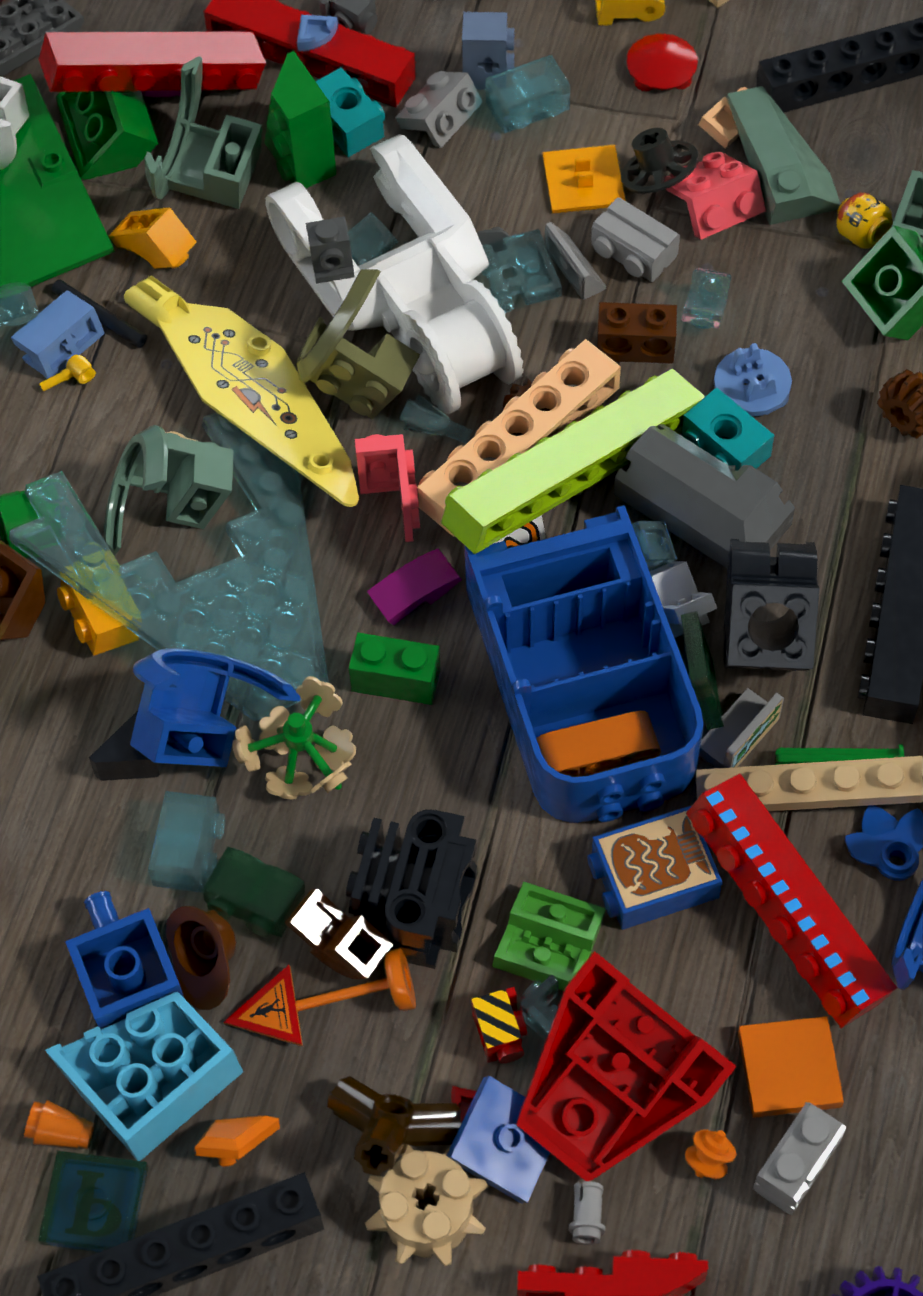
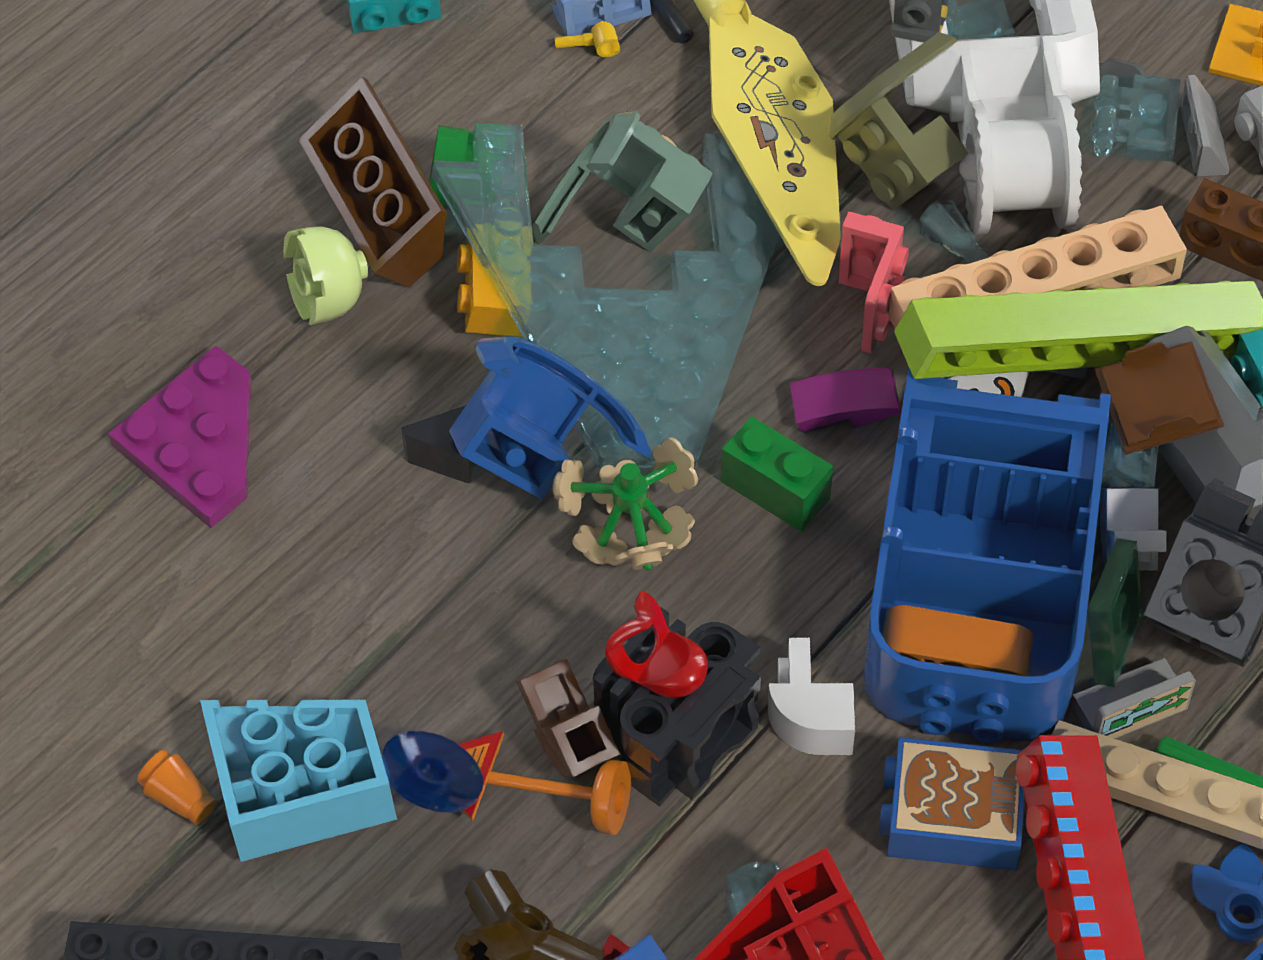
camera: 25 degrees right, 5 degrees down
(92, 1201) = (173, 878): tile -> none
(120, 961) = (326, 646): blue brick -> none
(185, 841) = (459, 558): clear light blue brick -> none
(200, 954) = (417, 675): reddish brown piece -> none
(235, 1137) = (352, 880): orange piece -> none
(253, 892) = (501, 638): clear green brick -> none
(256, 1023) = (432, 771): none -> clear blue dish
(409, 857) = (676, 662): none -> red piece
(499, 1025) = (695, 892): brick -> none
(511, 848) = (808, 714): none -> white brick
(548, 935) = (799, 817): bright green slope -> none
(657, 491) = (1158, 396): none -> reddish brown piece

